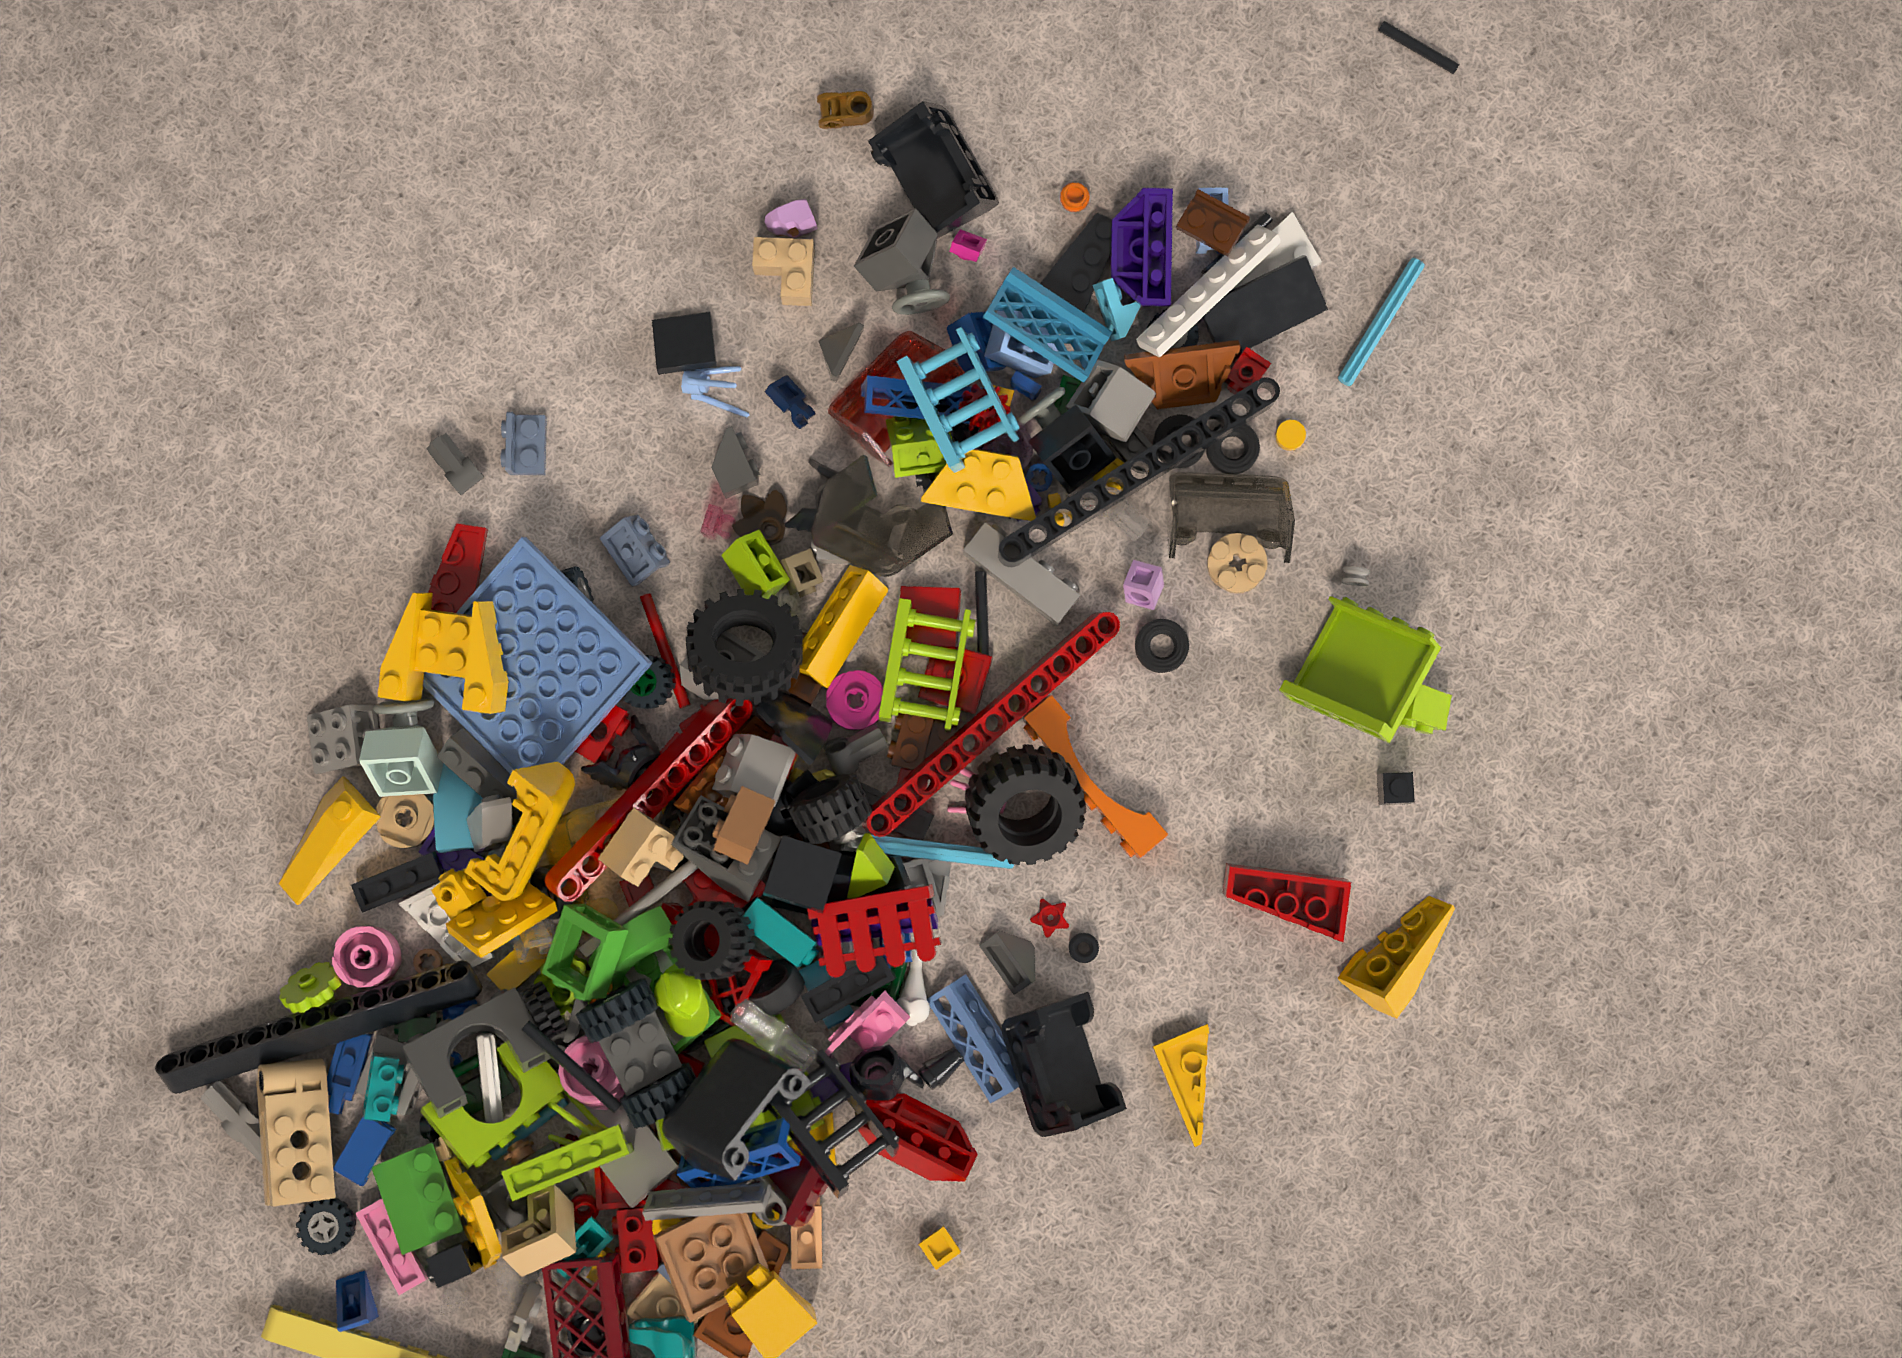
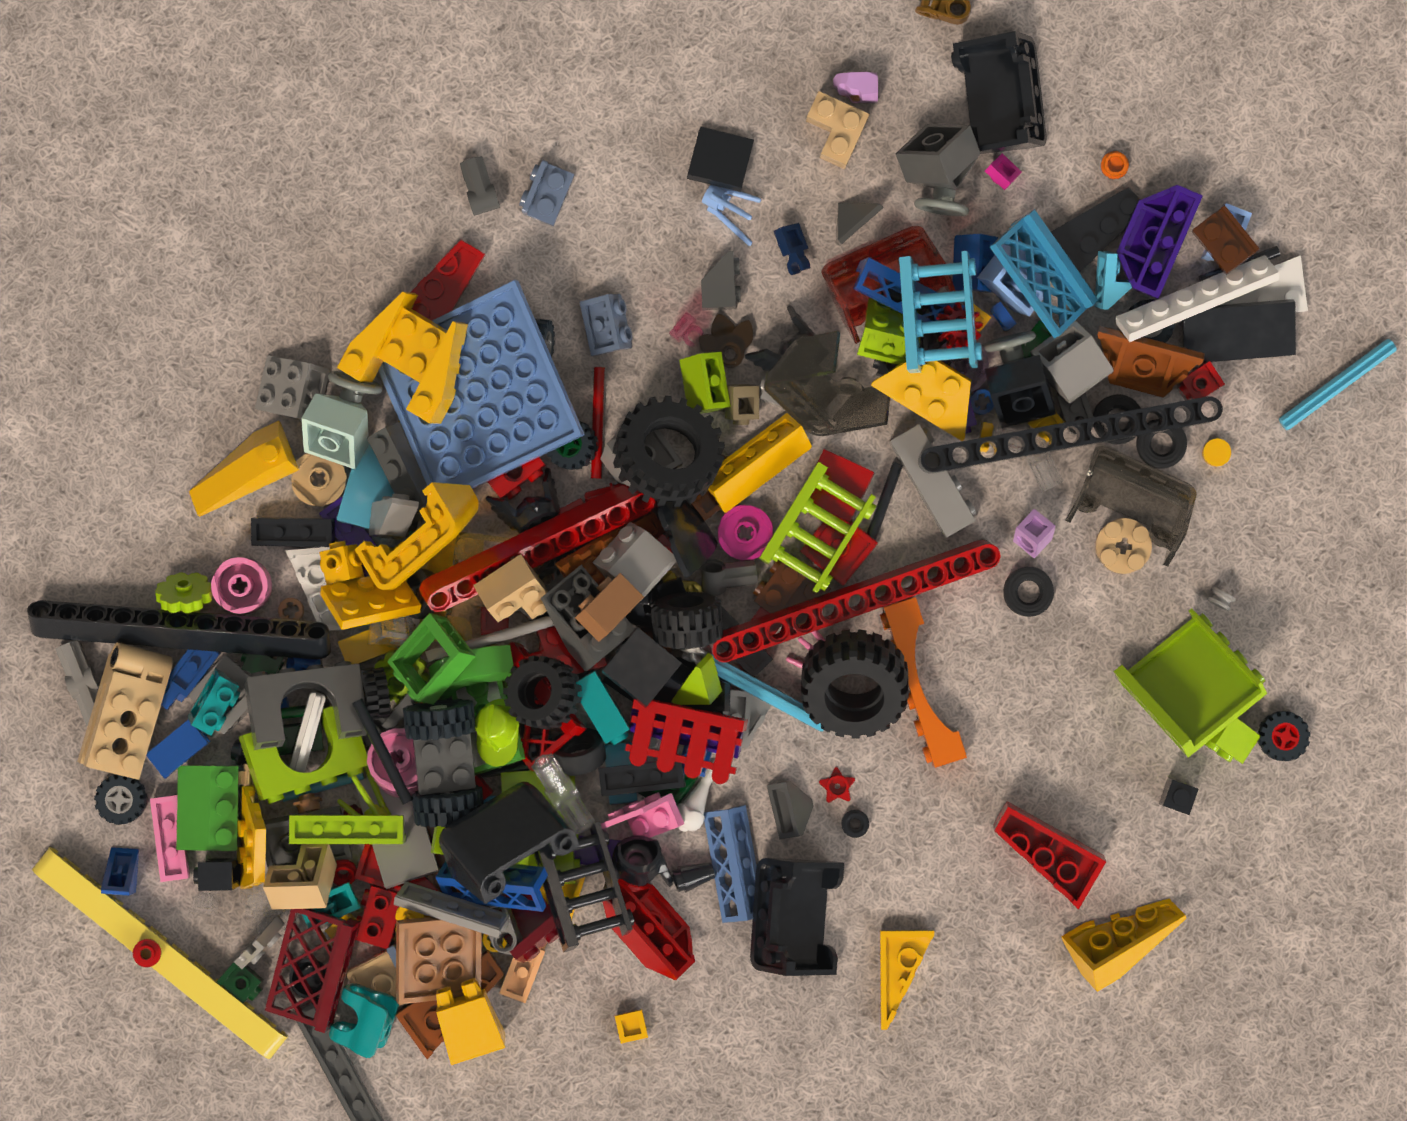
camera: 20 degrees right, 5 degrees up
(1485, 685) = (1293, 739): none -> black wheel

